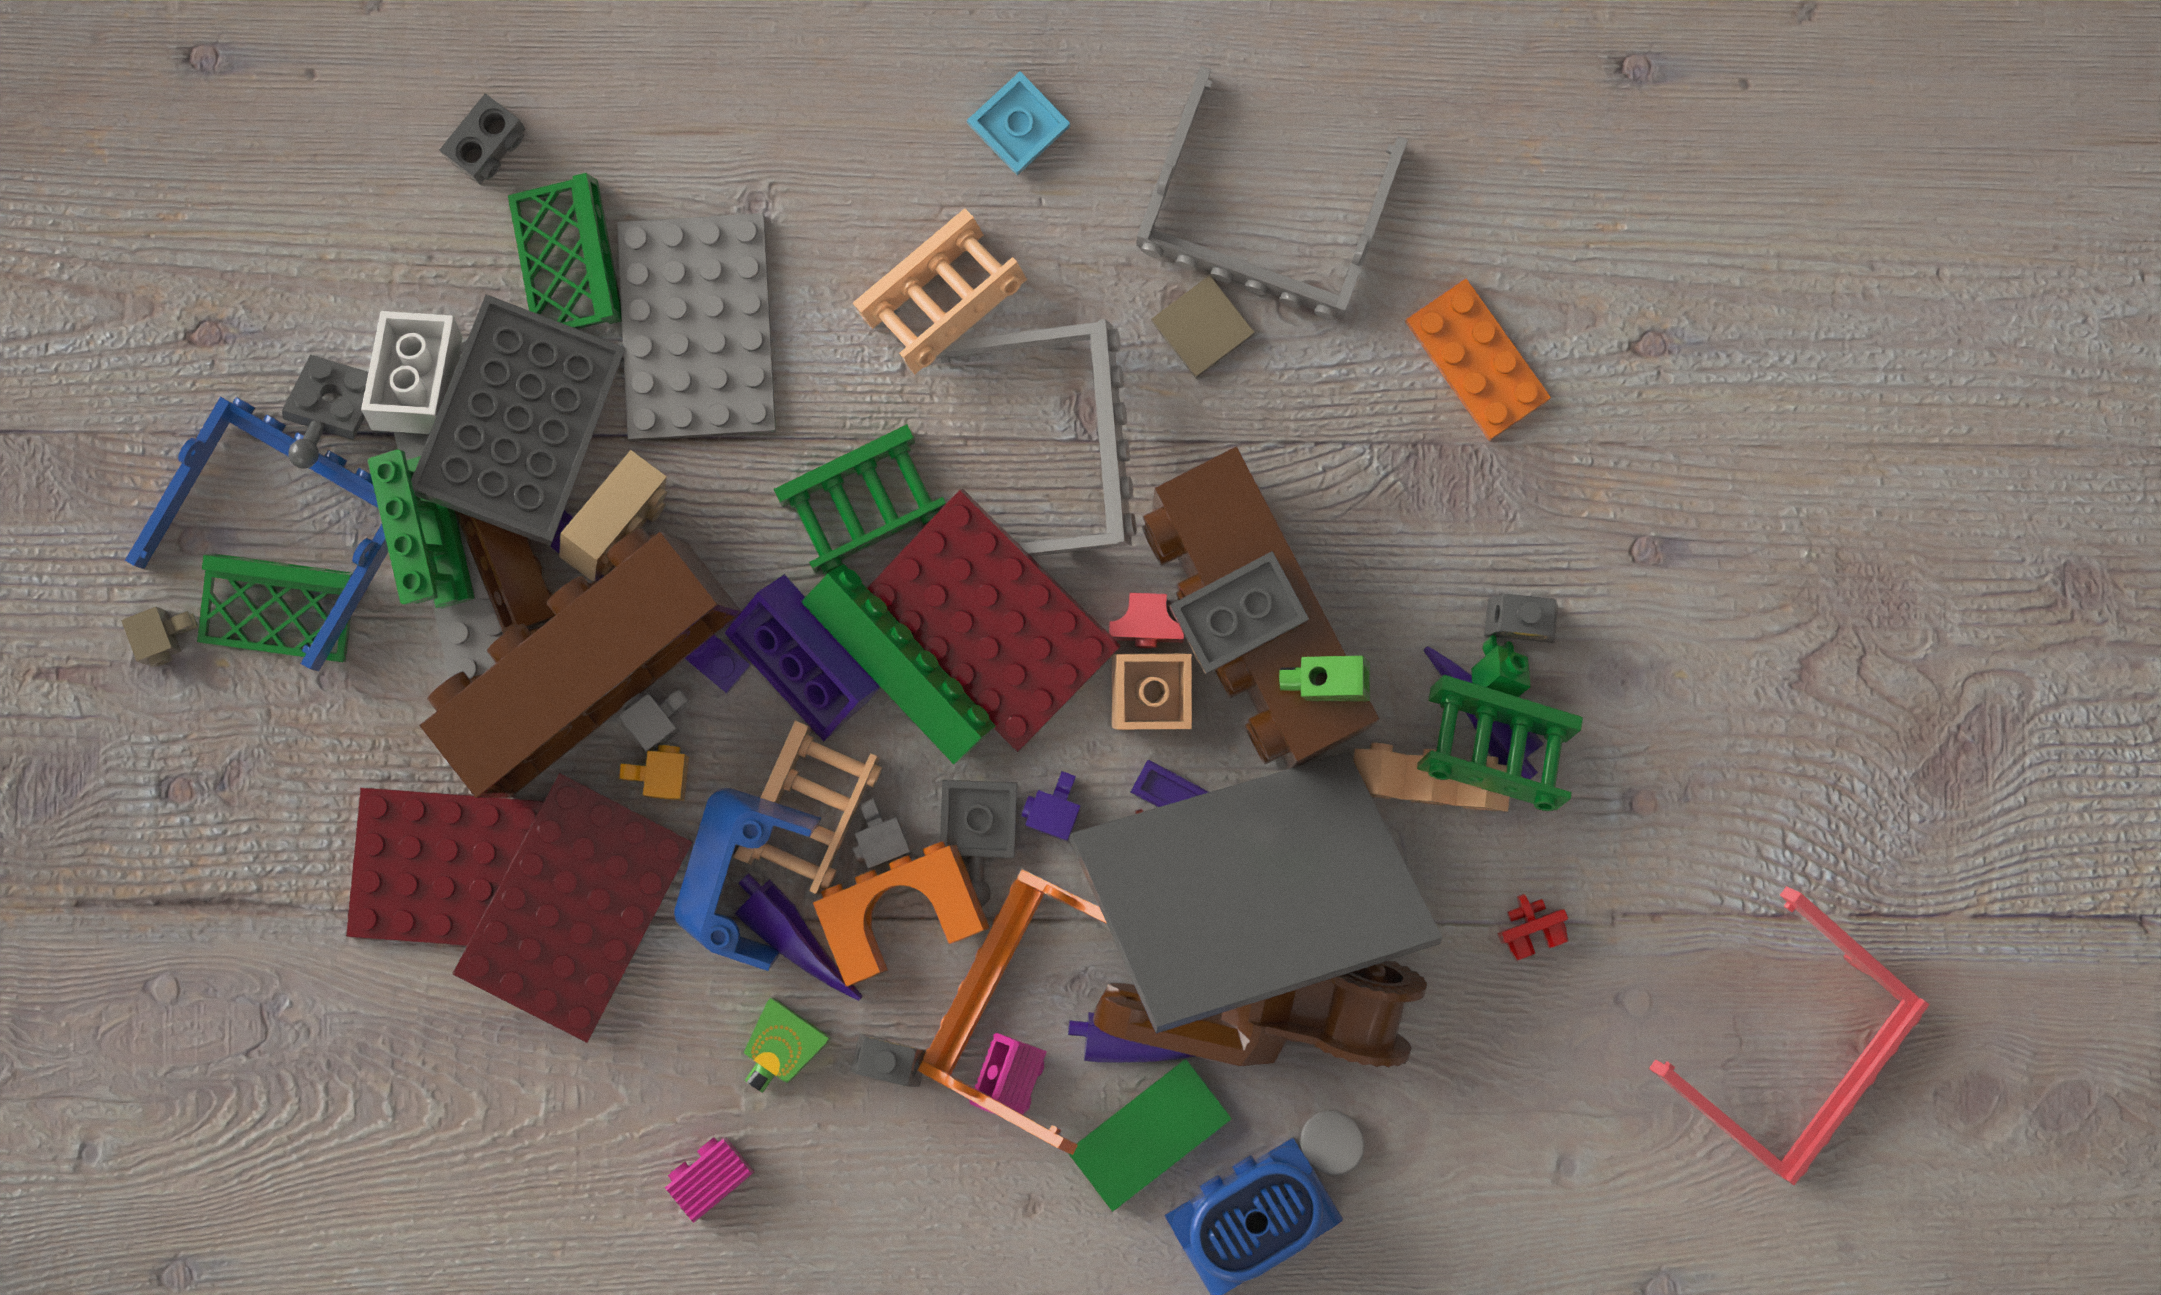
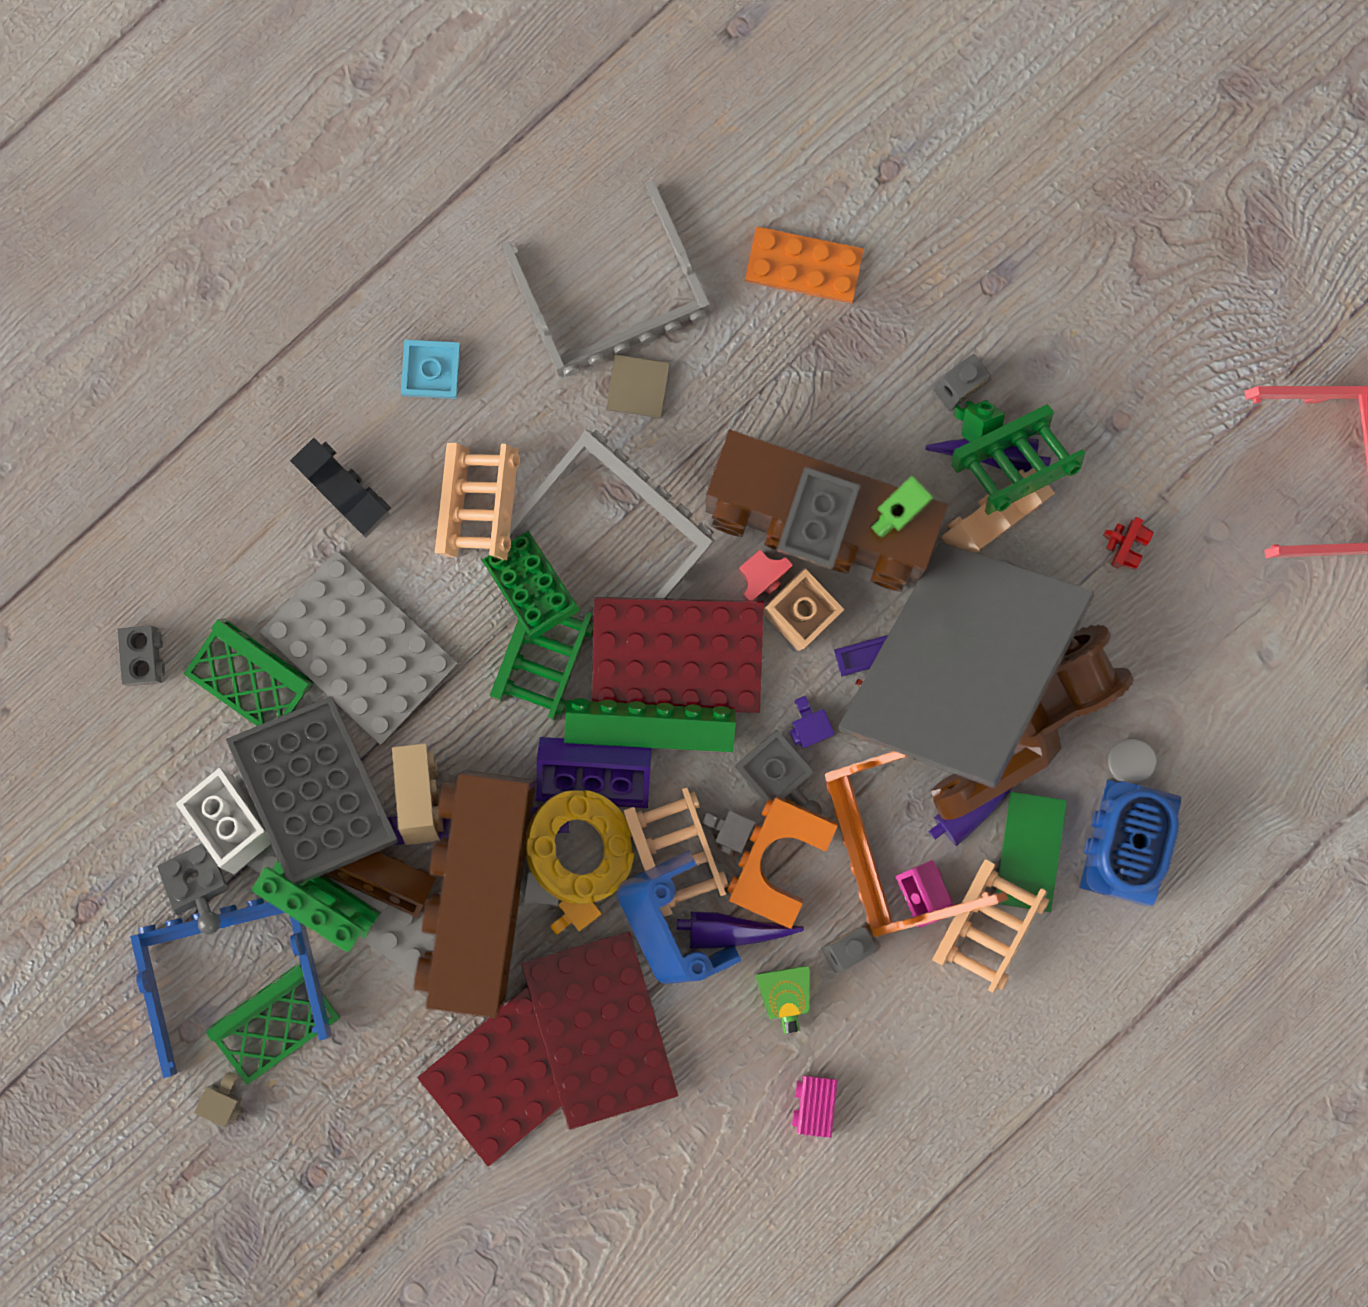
camera: 45 degrees left, 0 degrees up
(770, 724) = (615, 836): none -> yellow plate
(822, 191) = (341, 487): none -> black brick
(912, 422) = (531, 586): none -> green tile
(1012, 1142) = (962, 927): none -> light nougat fence

